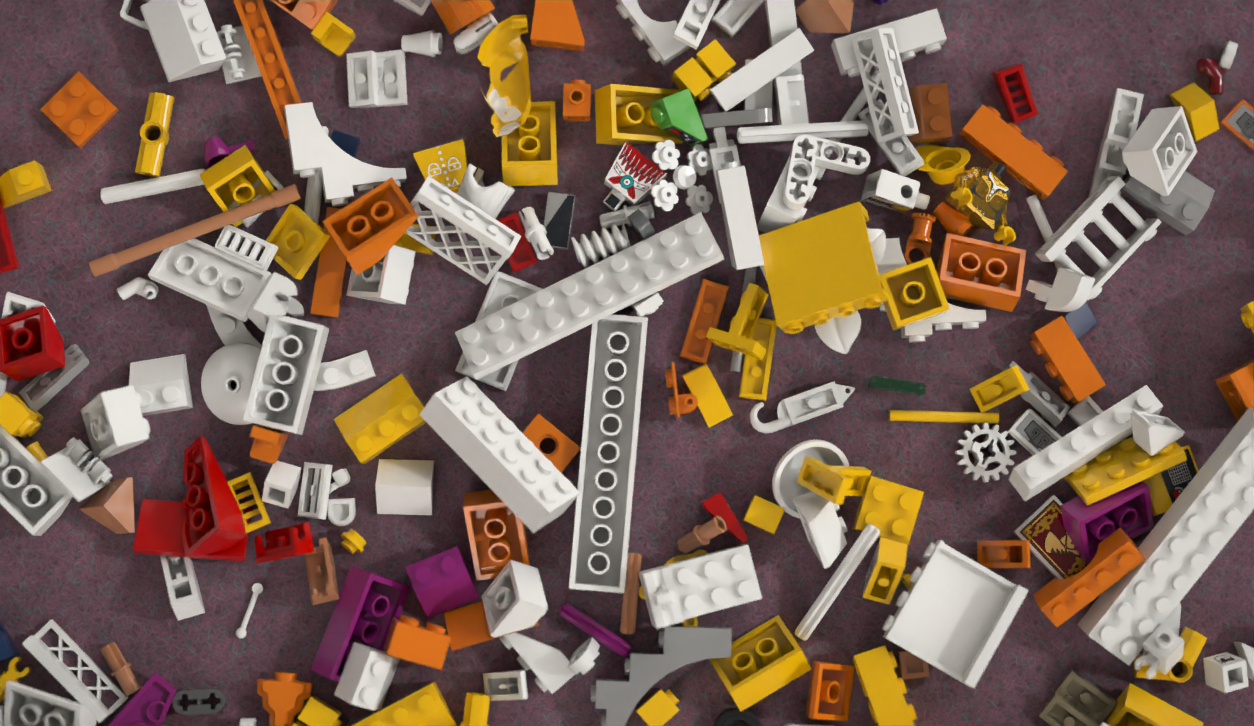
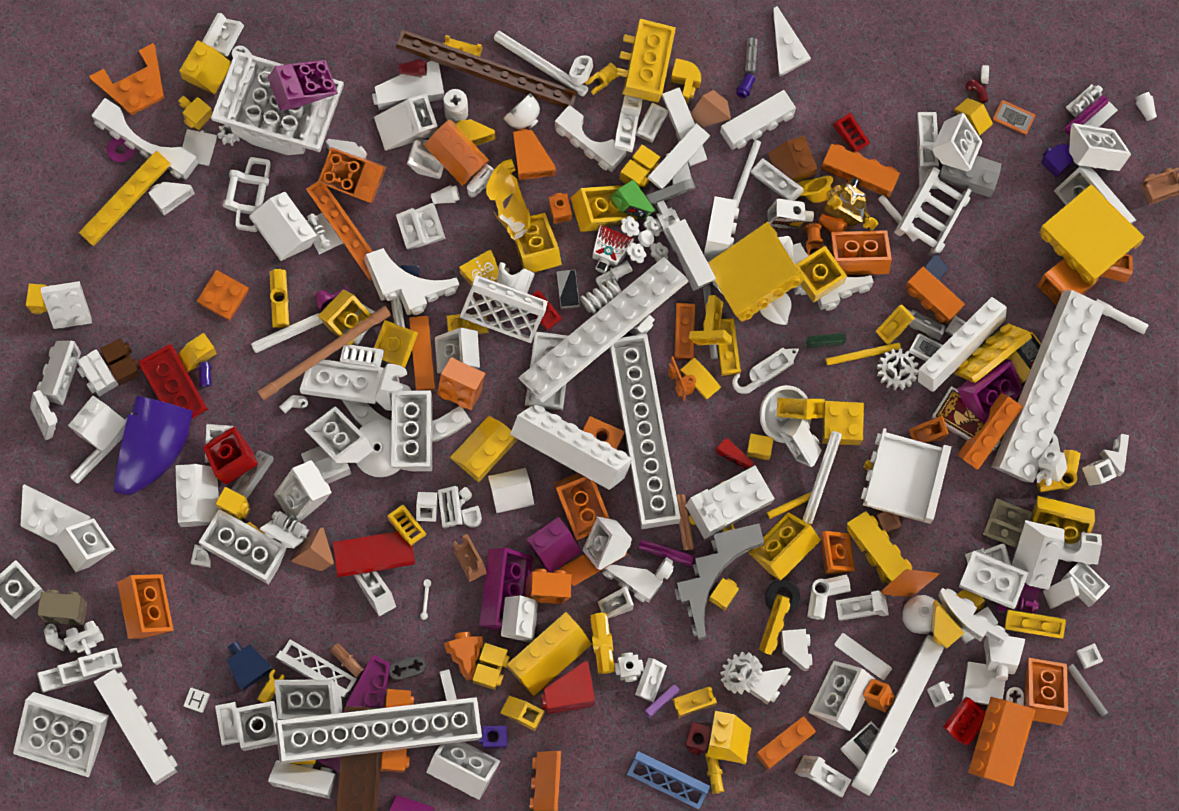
camera: 10 degrees left, 10 degrees down
(26, 217) = (204, 374): none -> dark purple pin
(182, 360) = (339, 437): none -> white slope
(213, 513) = (383, 534): red wedge -> none
(267, 443) = (410, 480): orange slope -> none
(284, 543) = (439, 545): red hinge -> none
(333, 34) = (384, 204): yellow panel -> none
(353, 541) = (485, 534): yellow plate -> none
(371, 225) = (444, 318): orange slope -> none
(371, 323) = (461, 384): none -> orange brick
(535, 233) = (555, 299): white pin -> none
(641, 225) = (625, 275): dark grey beam -> none
(702, 534) = (722, 469): nougat axle -> none
(782, 606) = (789, 505): none -> yellow bar
(791, 100) = (703, 174): white hinge -> none
(791, 132) = (717, 189): white axle -> none
(816, 157) = (730, 203): white beam -> none
(885, 570) = (852, 461): yellow brick -> none
(893, 82) = (769, 144): white fence -> none
(1067, 292) = (922, 249): white brick -> none
(1153, 431) = (1004, 325): white slope -> none

